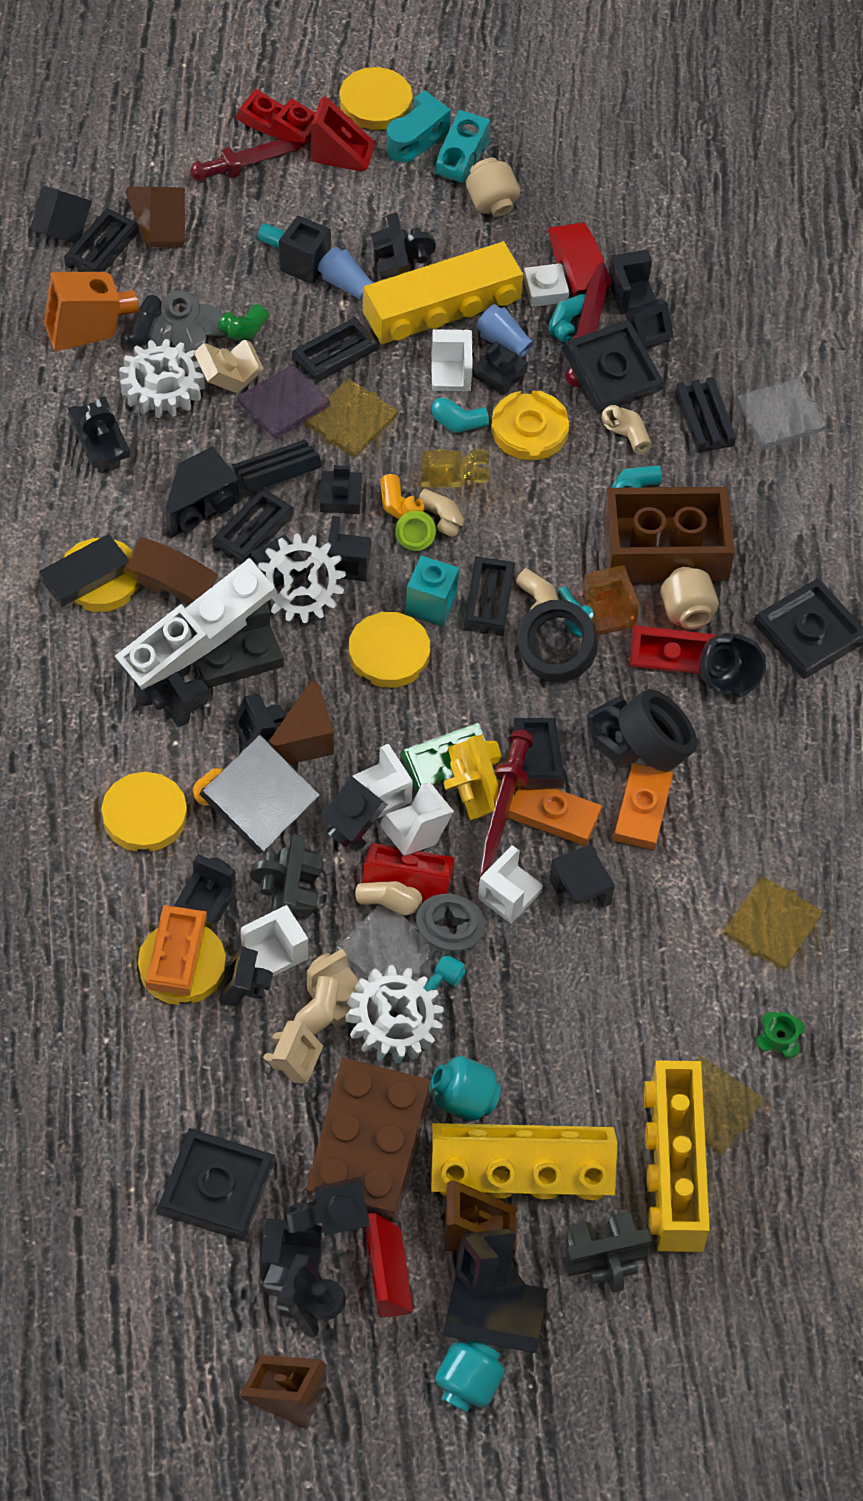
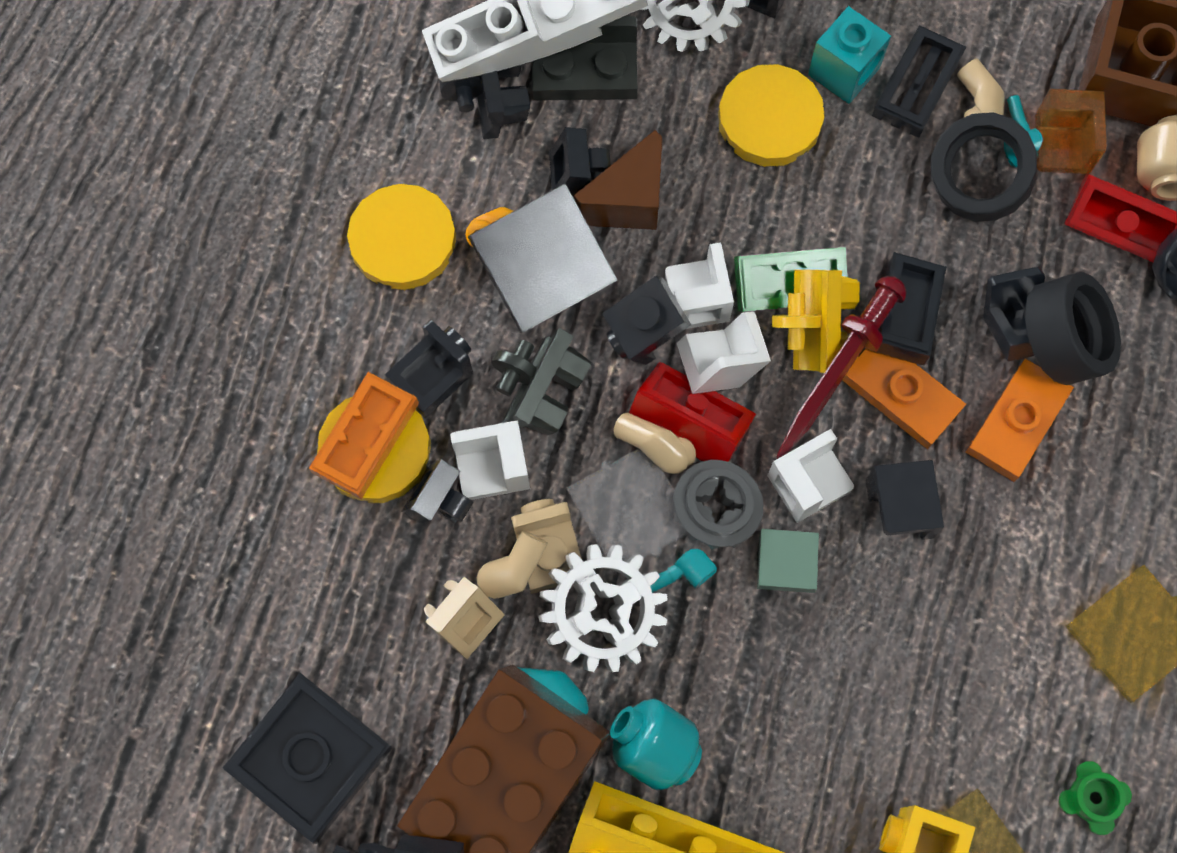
camera: 25 degrees right, 15 degrees up
(513, 948) = (788, 560): none -> sand green tile

